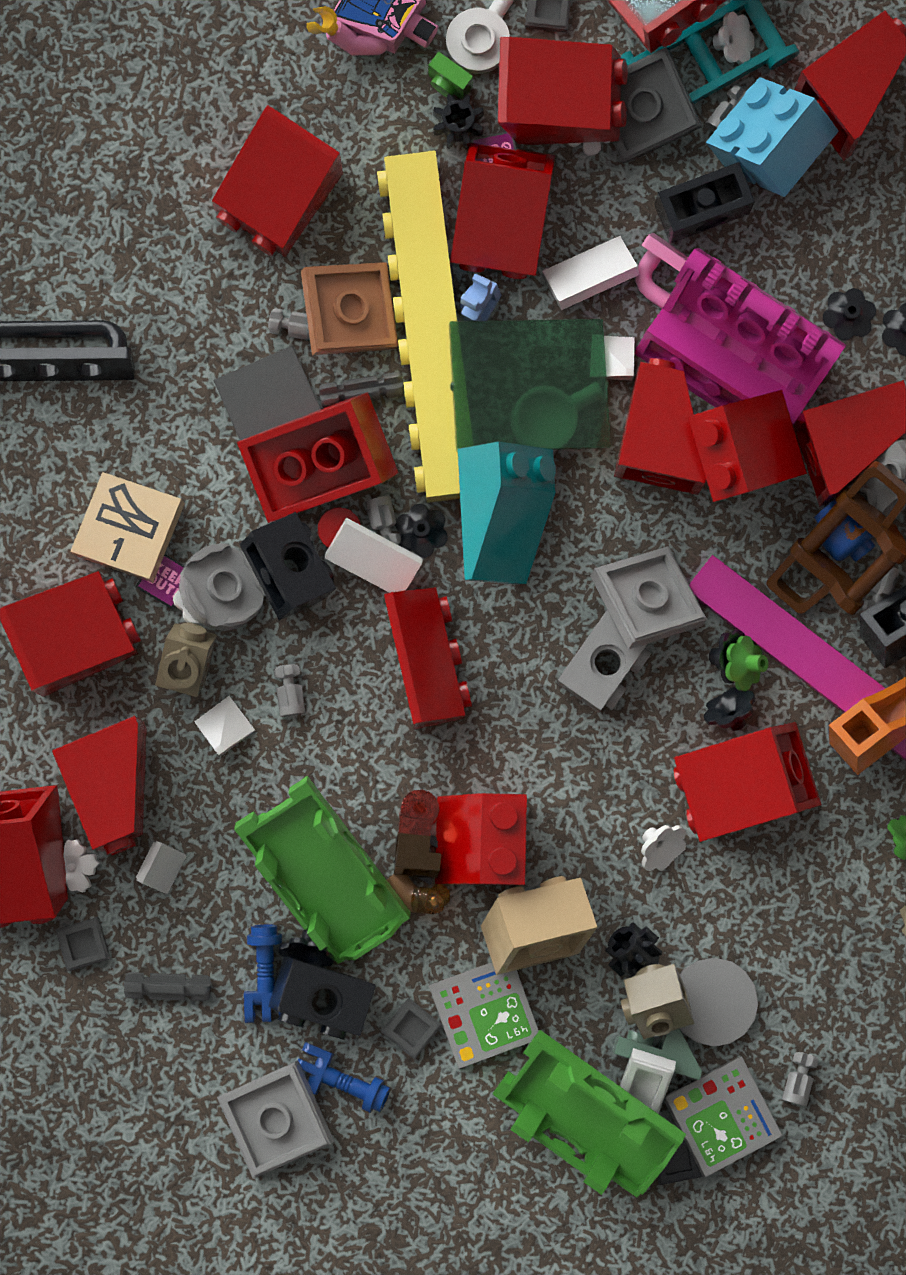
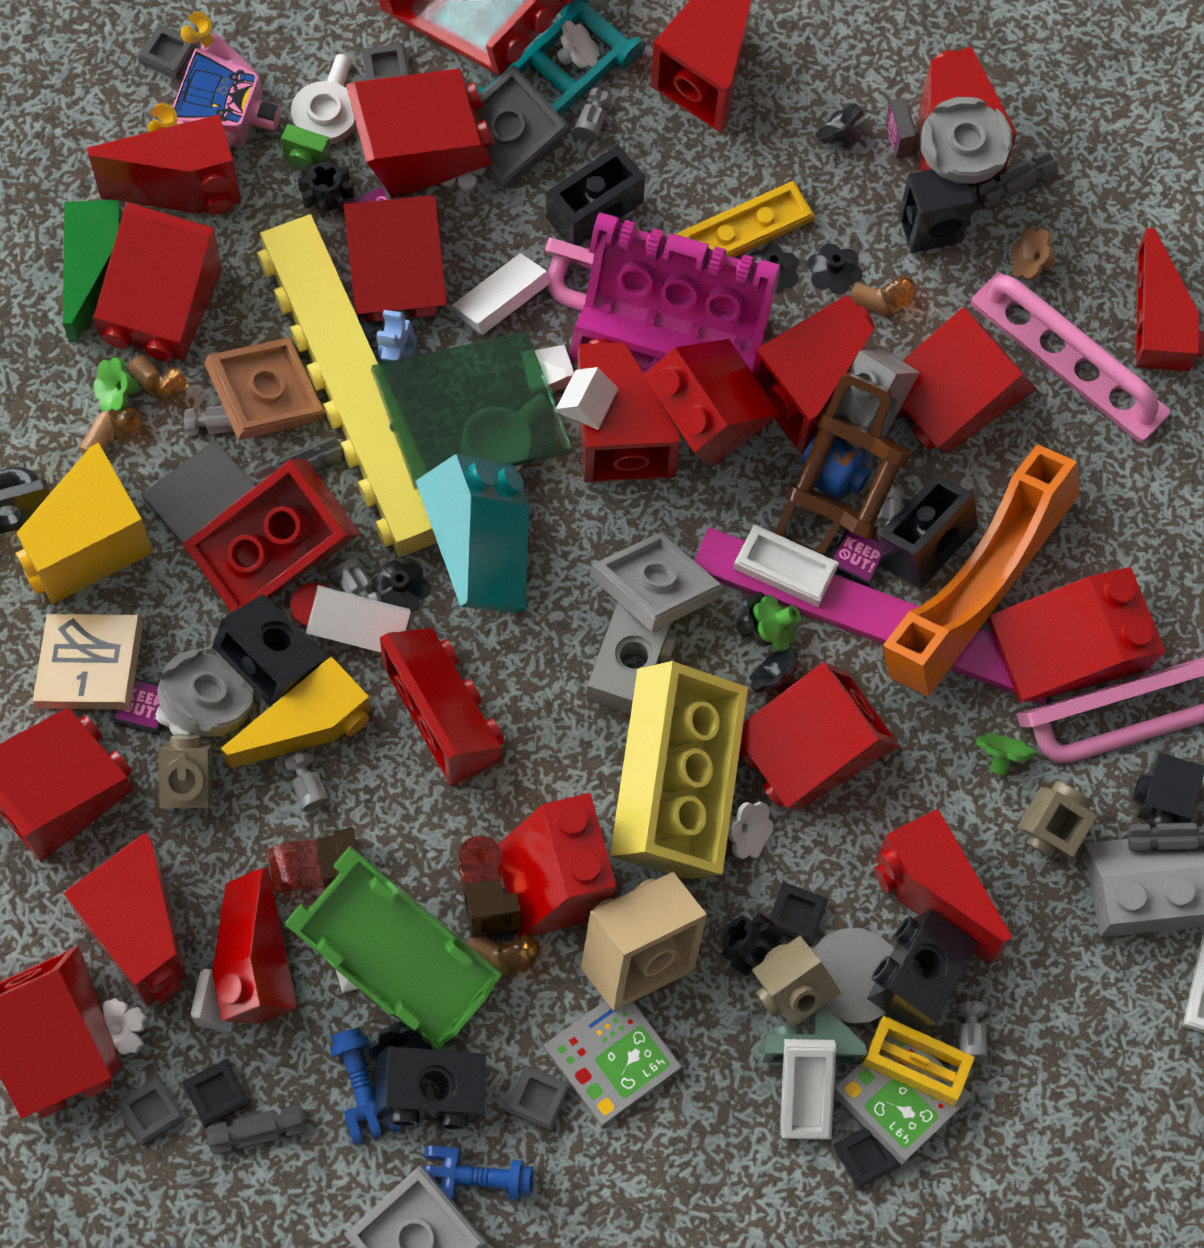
camera: 20 degrees left, 15 degrees down
(141, 944) = (216, 1093): none -> black tile
(150, 407) = (82, 530): none -> yellow slope
(201, 305) = (112, 426): none -> arm
(201, 833) = (250, 953): none -> red slope
(214, 267) = (114, 385): none -> bright green plant
(224, 726) = (246, 838): white slope -> none
(225, 126) = (88, 245): none -> green slope
(249, 267) = (155, 383): none -> clear orange arm
(275, 767) = (308, 862): none -> clear red leg
(309, 632) = (307, 716): none -> yellow slope
(324, 69) = (170, 168): none -> red slope
(602, 1120) = (761, 1127): bright green piece -> none
(614, 784) = (679, 771): none -> light yellow brick
(633, 419) = (588, 397): none -> white slope
(682, 931) = (798, 912): none -> black tile
(715, 1071) = (913, 1078): none -> yellow tile
(770, 613) = (786, 565): none -> white tile
(773, 135) = (645, 113): medium azure piece -> none
(795, 1014) = (943, 955): none -> black brick
(809, 942) = (932, 872): none -> red slope
(835, 623) = (858, 558): none -> tile
(836, 265) = (754, 221): none -> yellow tile

